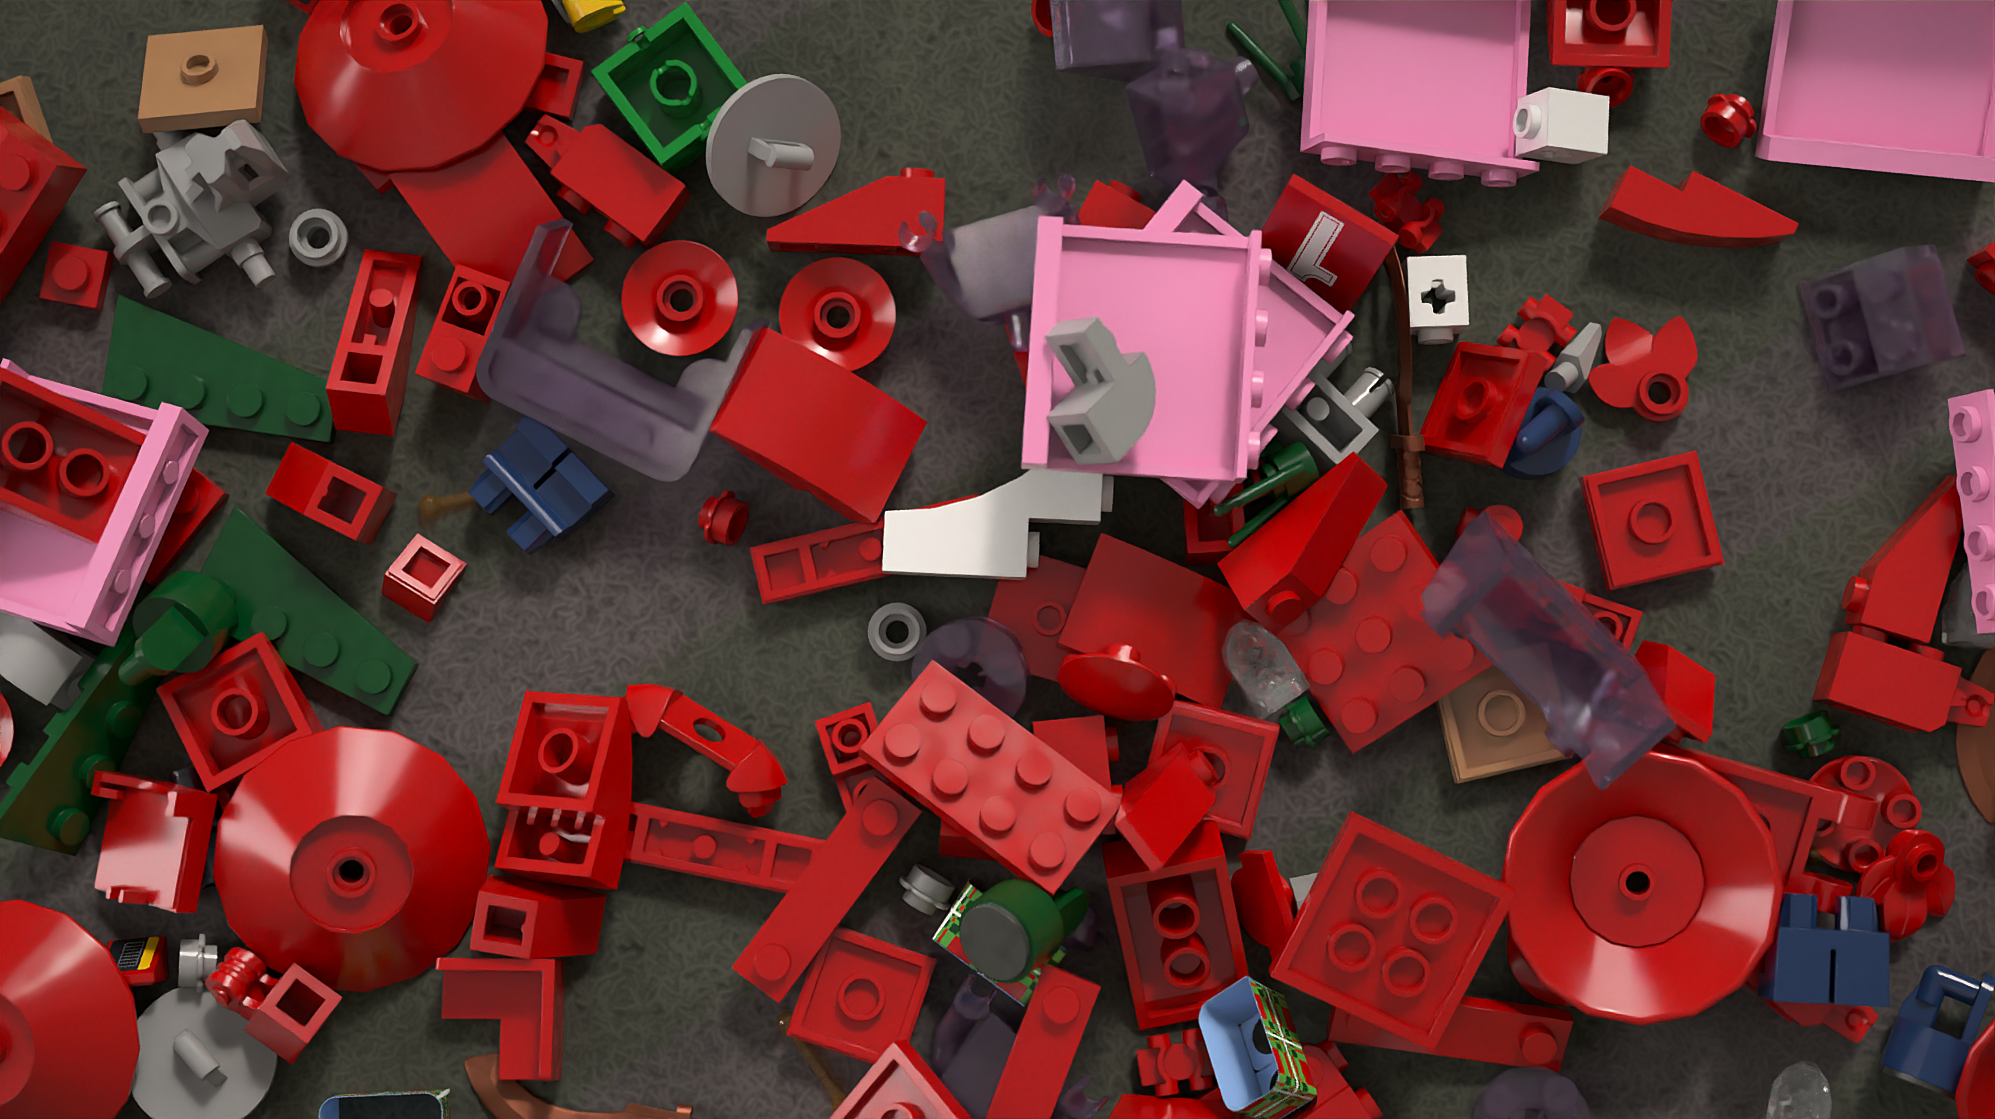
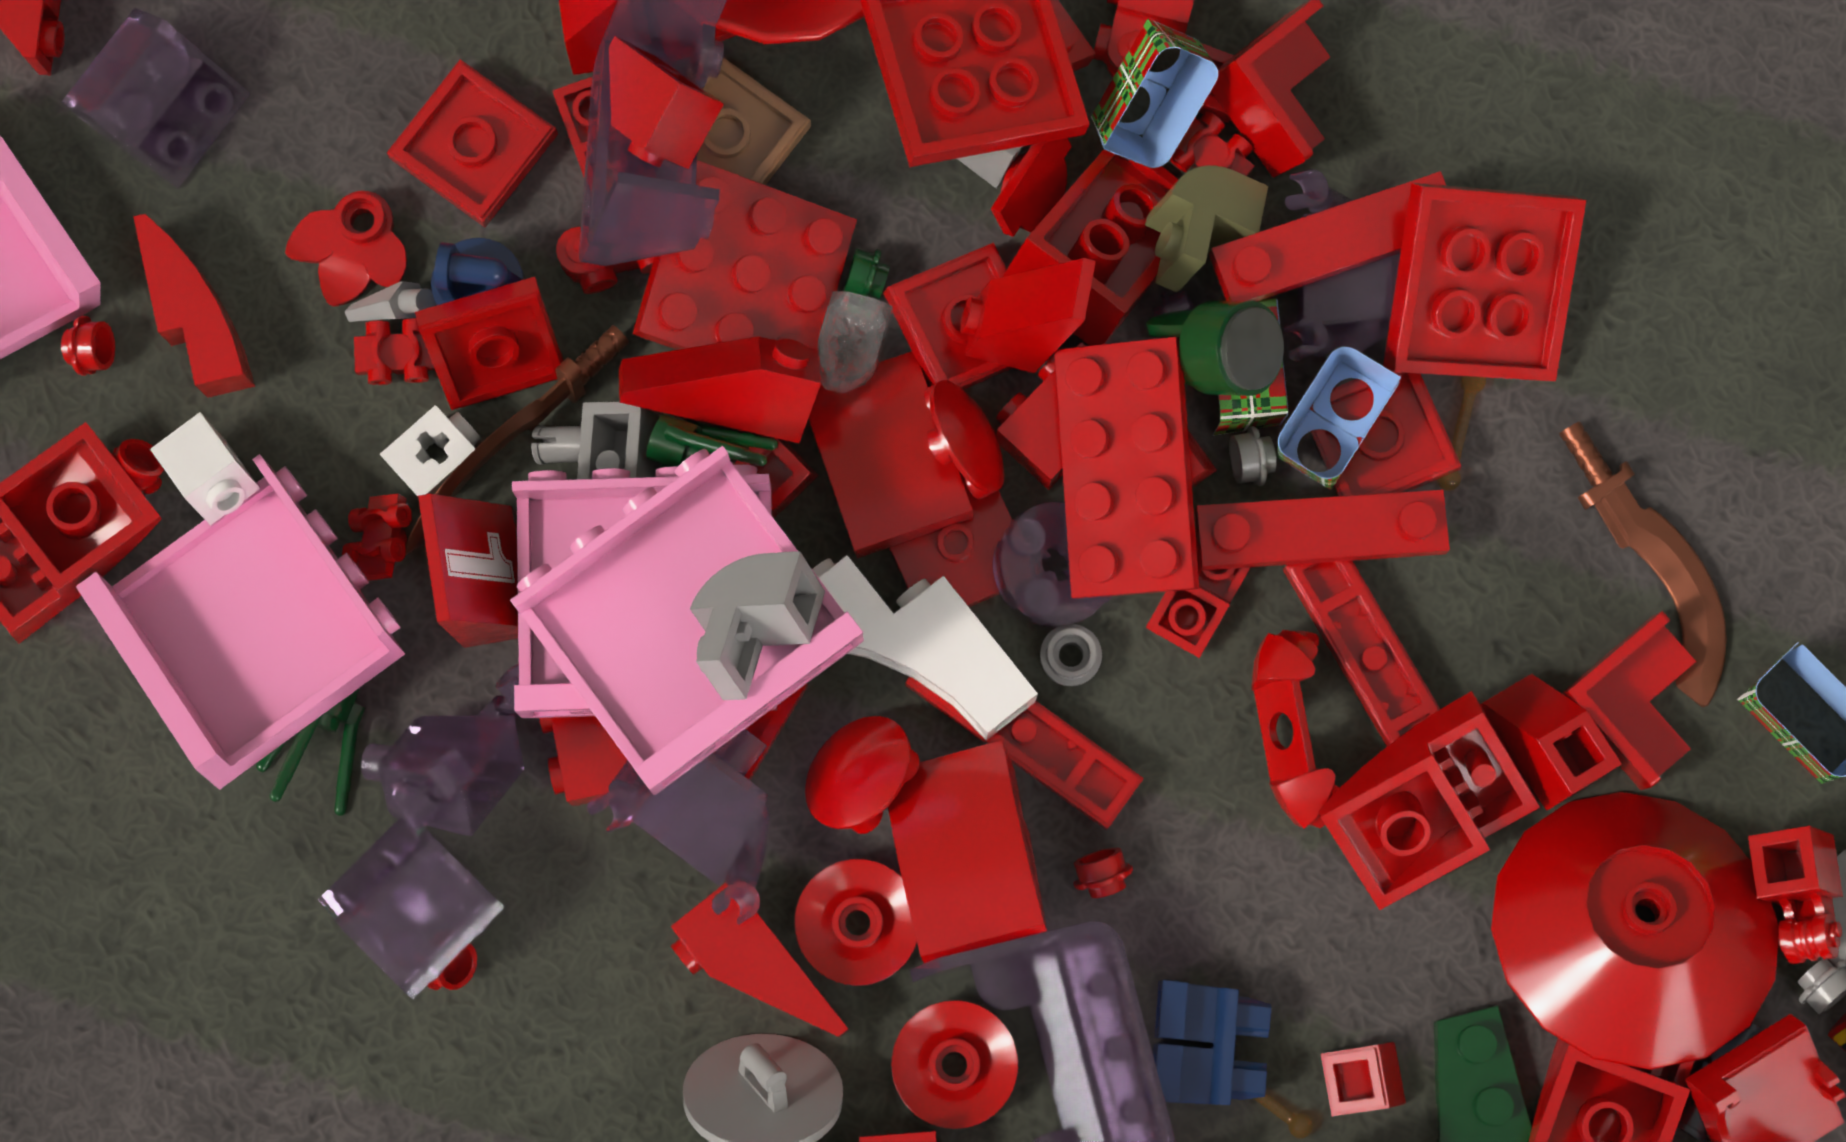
camera: 130 degrees left, 5 degrees down
(907, 967) = (1340, 365): none -> light blue piece
(939, 404) = (859, 773): none -> red dish
(1136, 1010) = (1200, 213): none -> olive brick
(1557, 665) = (657, 106): none -> red slope

